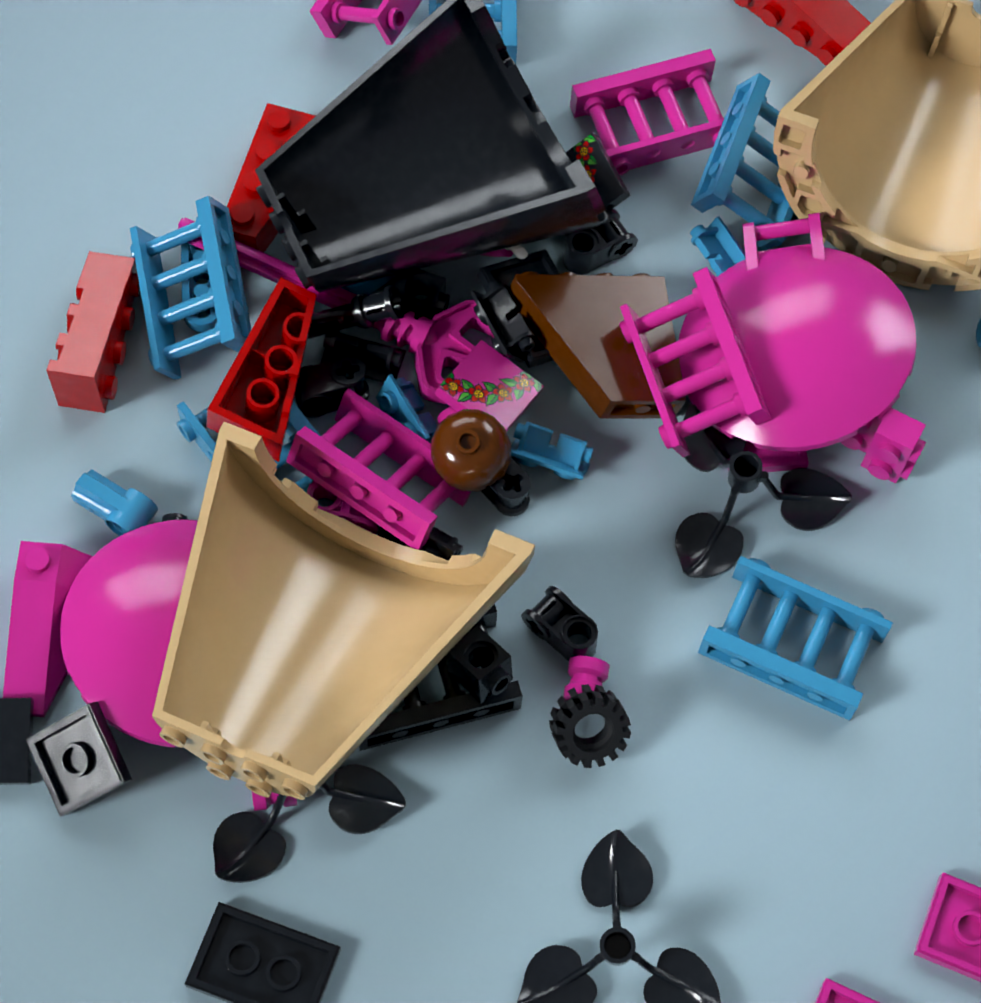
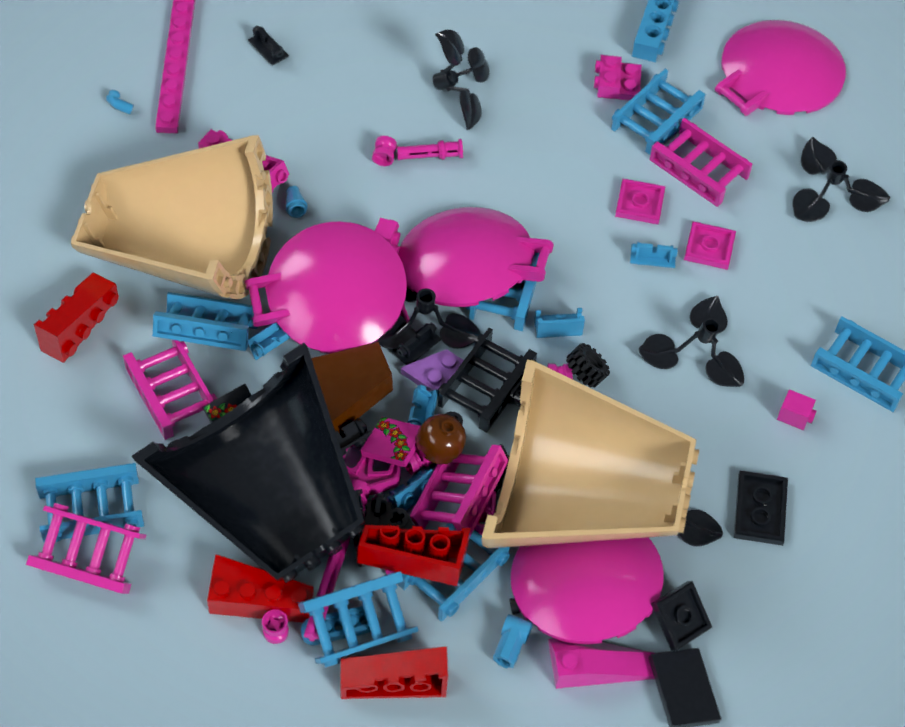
camera: 100 degrees left, 10 degrees down
(217, 184) = (277, 621): none -> dark pink wheel
(613, 628) = (498, 397): none -> black fence
(630, 493) = (433, 369): none -> medium lavender wing
(691, 484) = (418, 345): none -> black hinge
(699, 709) = (559, 325): none -> dark azure hinge
(732, 366) = (347, 310): dark pink fence -> none
(833, 917) = (653, 256): none -> dark azure hinge
(854, 582) = (471, 256): none -> dark pink dish

